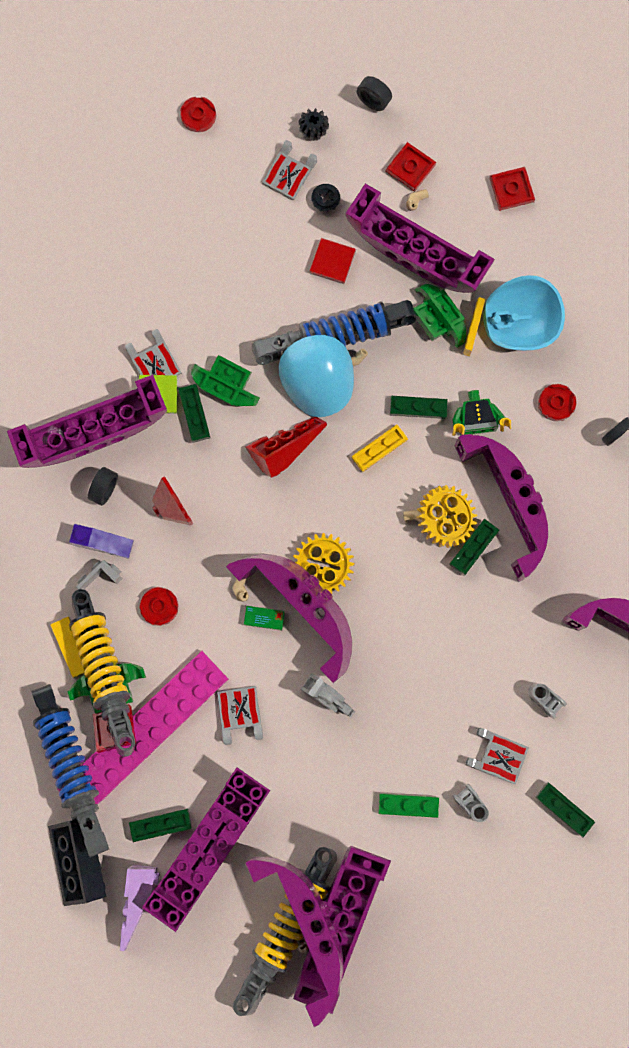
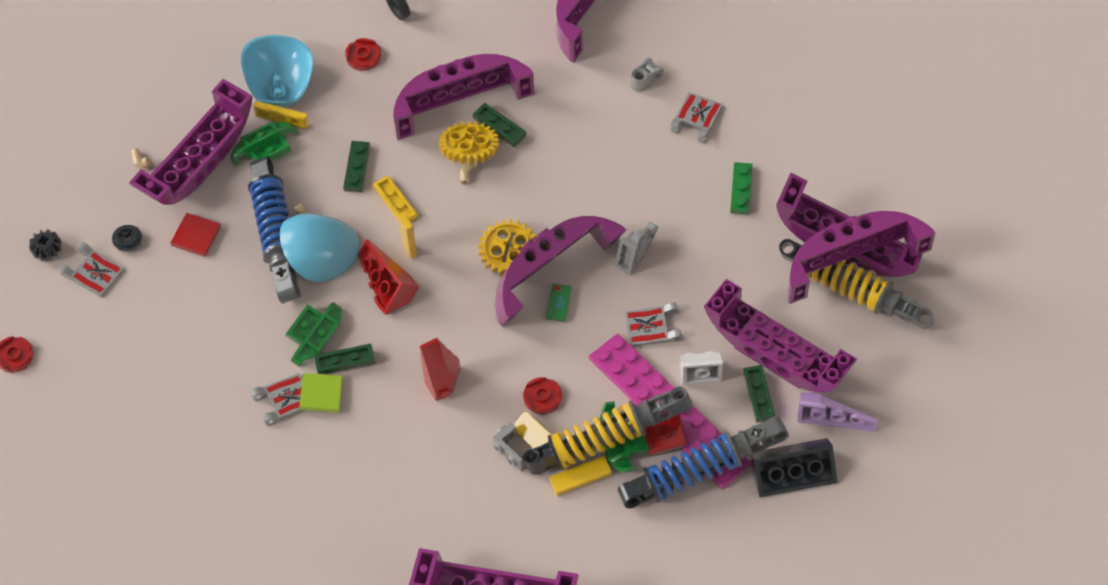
camera: 85 degrees left, 20 degrees down
(89, 428) = (349, 435): magenta slope -> none
(100, 541) = (472, 447): slope -> none
(102, 486) = (416, 437): black tyre -> none
(116, 598) = (531, 430): none -> slope
(187, 765) = (701, 368): none -> white slope
(240, 590) = (529, 323): tan arm -> none
(323, 460) = (407, 235): none -> yellow tile
(374, 93) = (23, 186): black tyre -> none
(410, 166) = (104, 164): red tile -> none
(471, 802) = (738, 136): light grey piece -> none
(478, 416) = (372, 113): torso -> none
(512, 188) = (140, 80): red tile -> none
(565, 809) = (745, 65): dark green plate -> none

